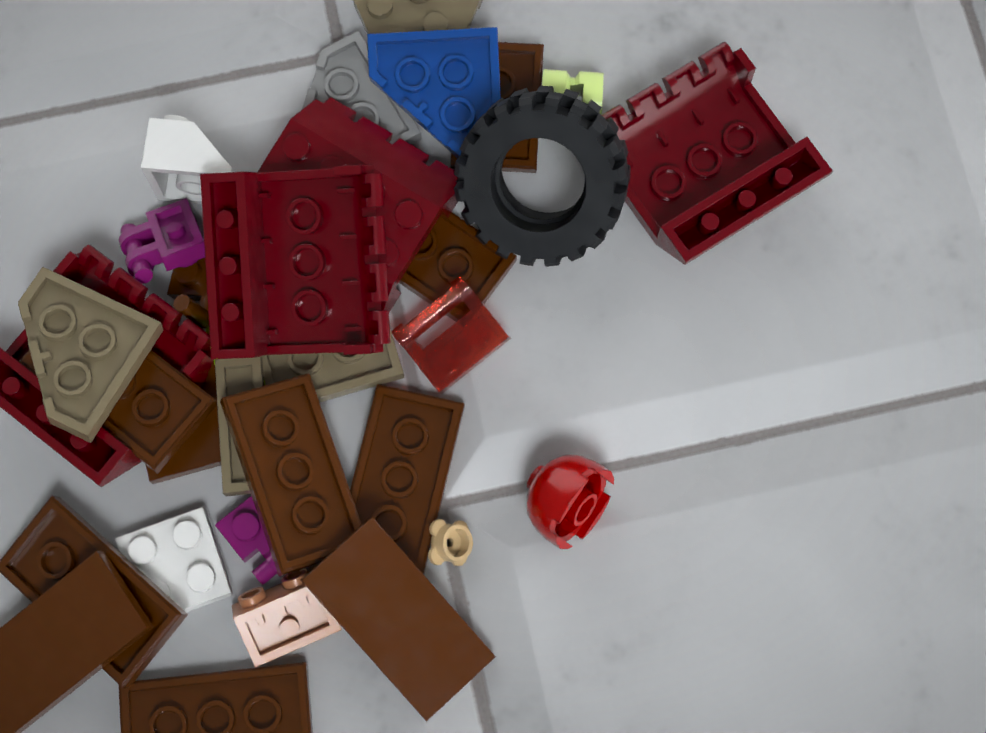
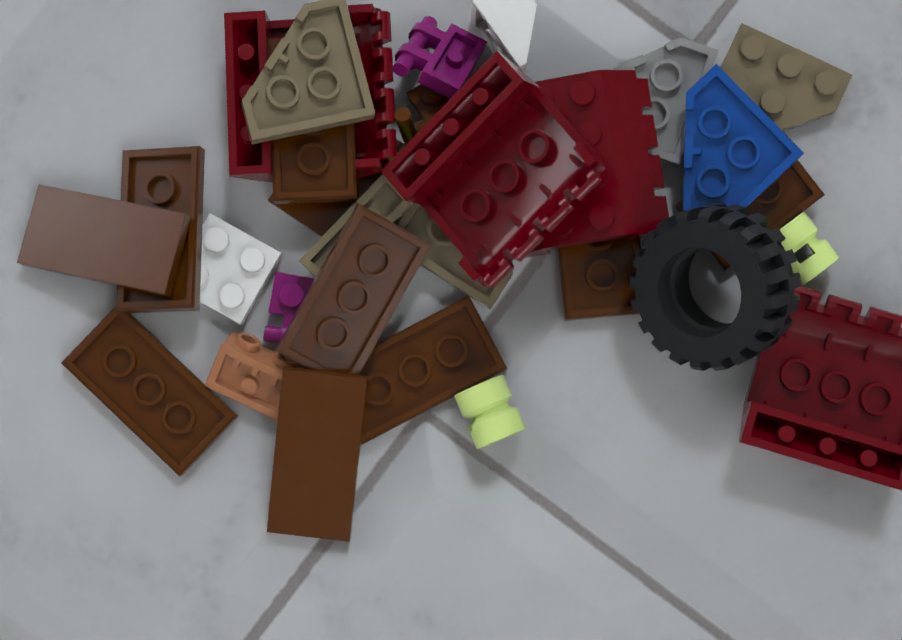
camera: 50 degrees right, 10 degrees up
(459, 542) = (404, 451): tan plate -> none
(461, 345) = (545, 330): clear red plate -> none
(488, 445) = (489, 411): none -> yellowish green wheel
(567, 498) = (498, 498): red cylinder -> none

